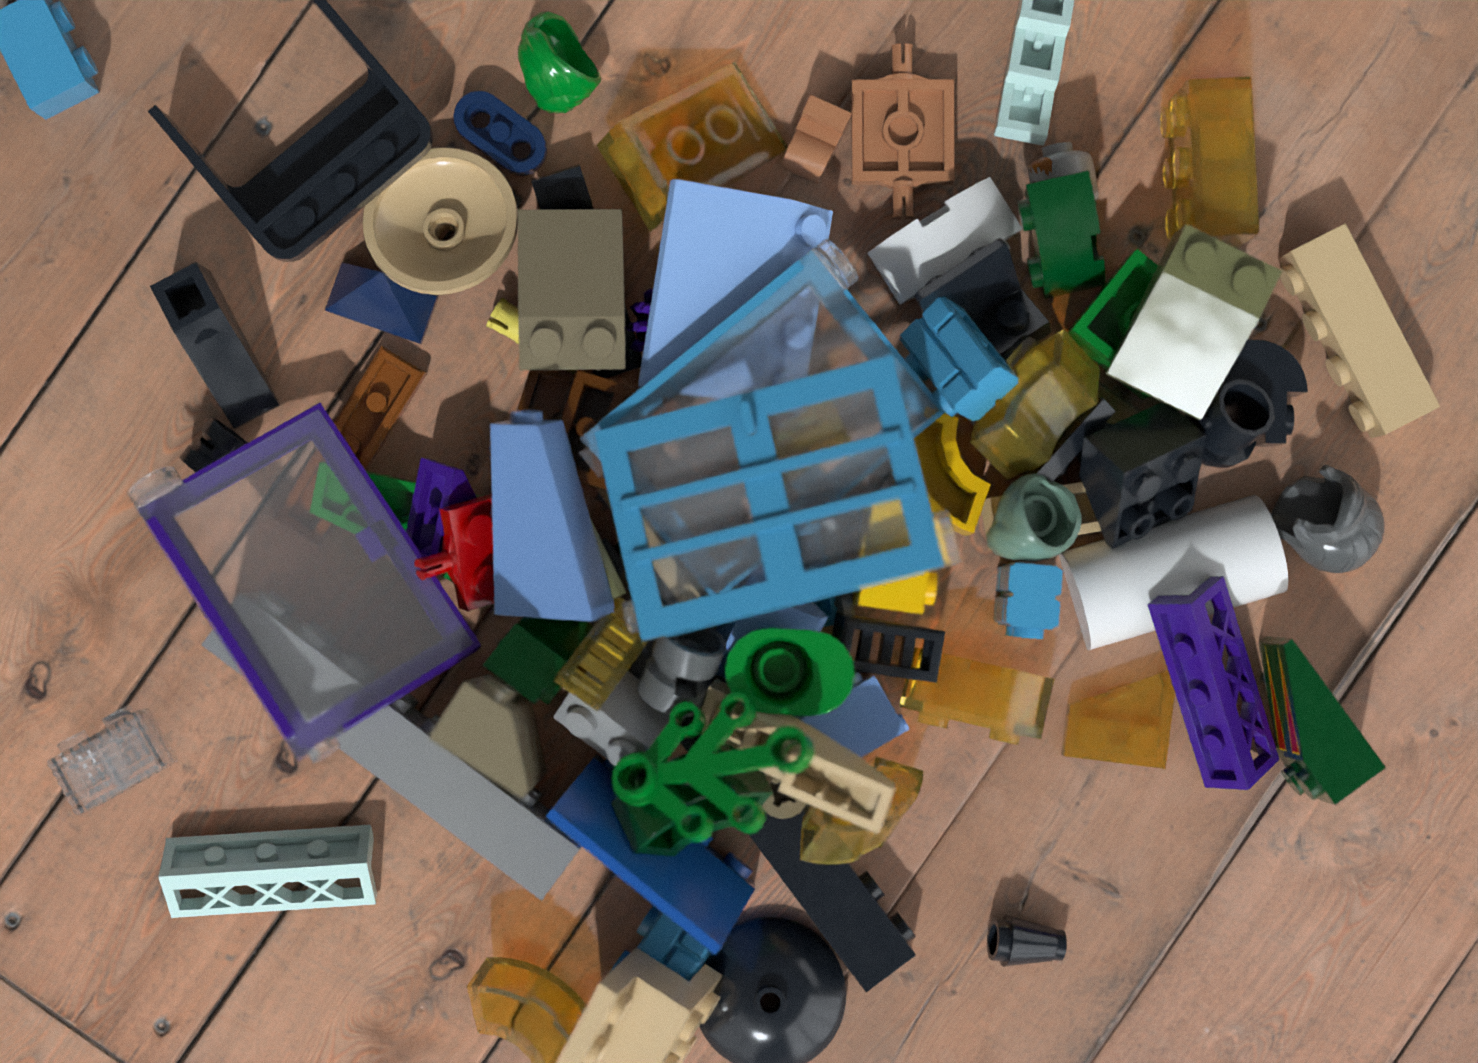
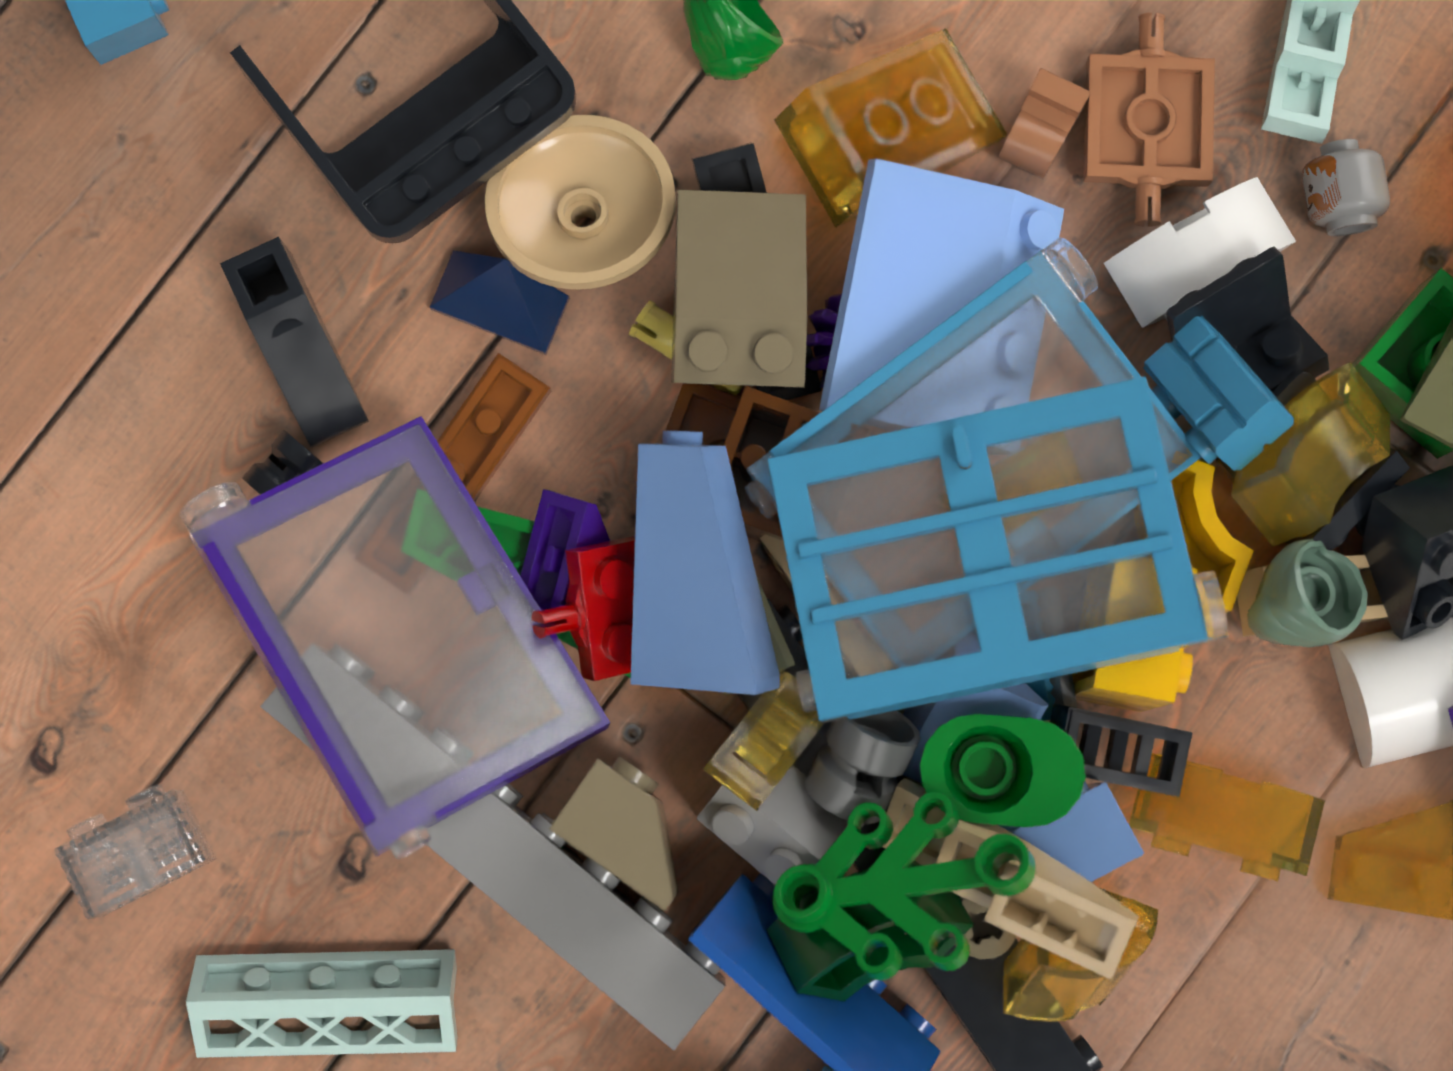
camera: 10 degrees right, 5 degrees down
(502, 133) = (658, 103): dark blue plate -> none
(535, 654) = (679, 737): dark green brick -> none
(1027, 599) = (1295, 696): dark azure brick -> none
(1063, 233) = (1348, 236): dark green brick -> none

